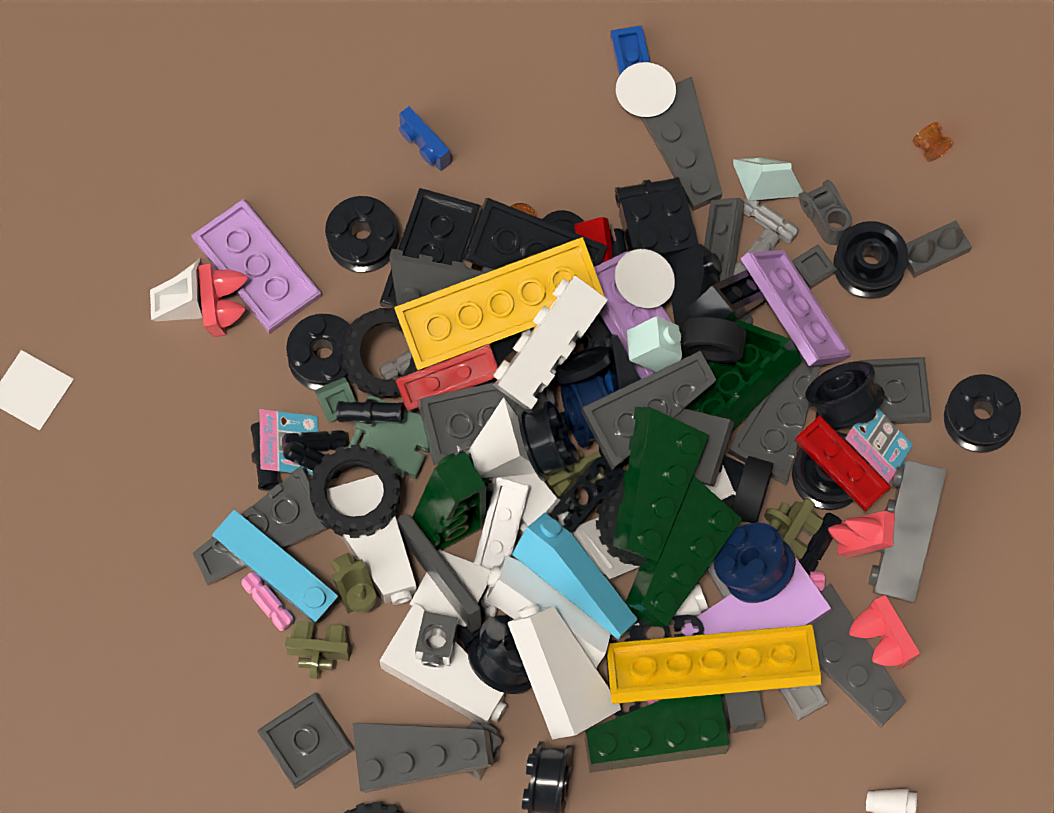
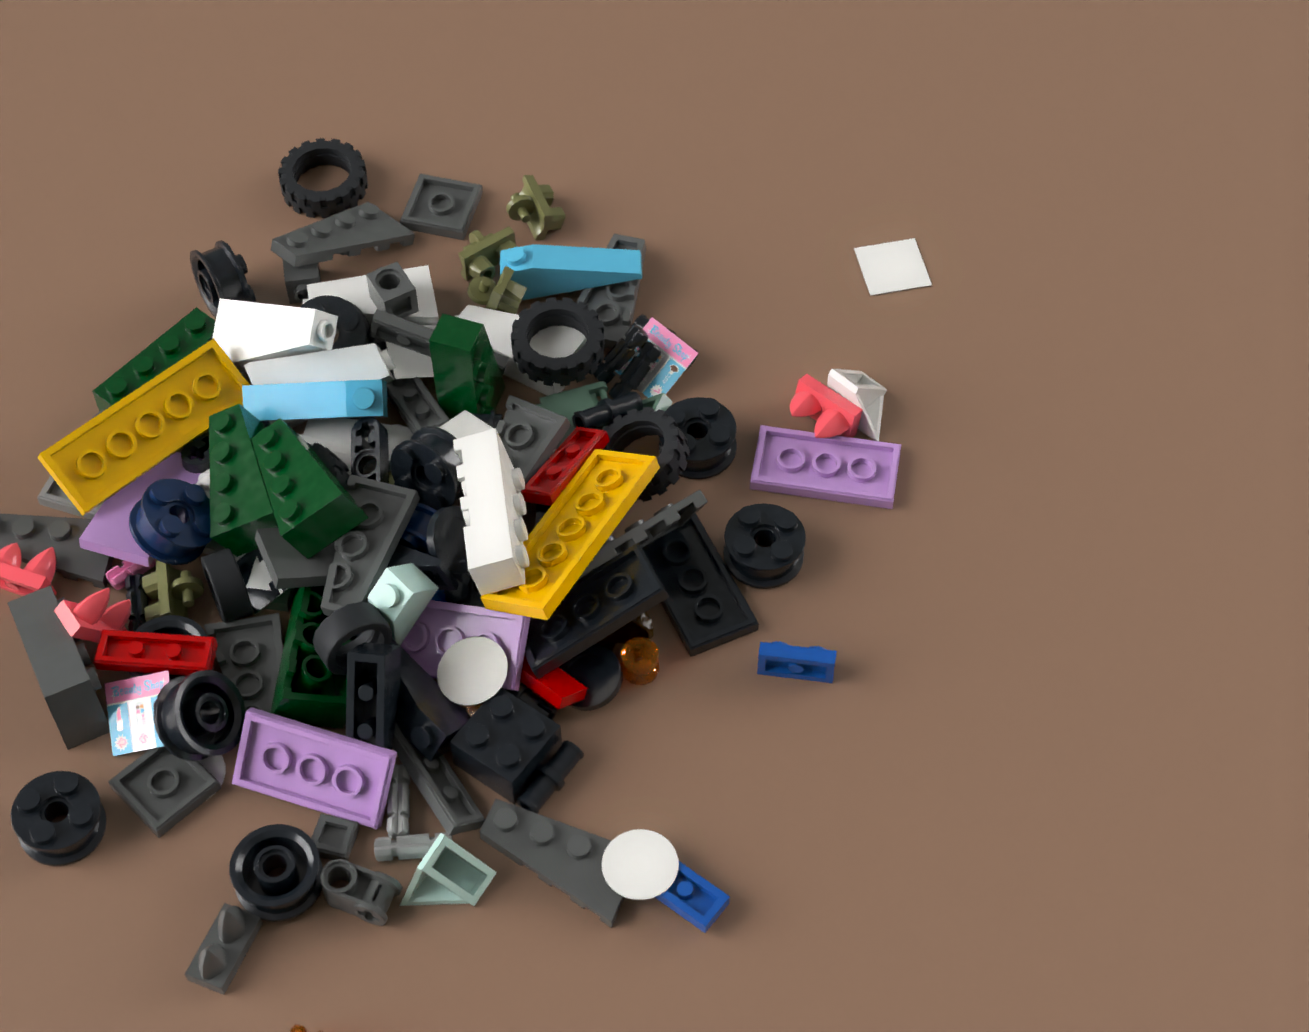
camera: 140 degrees right, 15 degrees down
(242, 665) = (535, 208): none -> olive hips

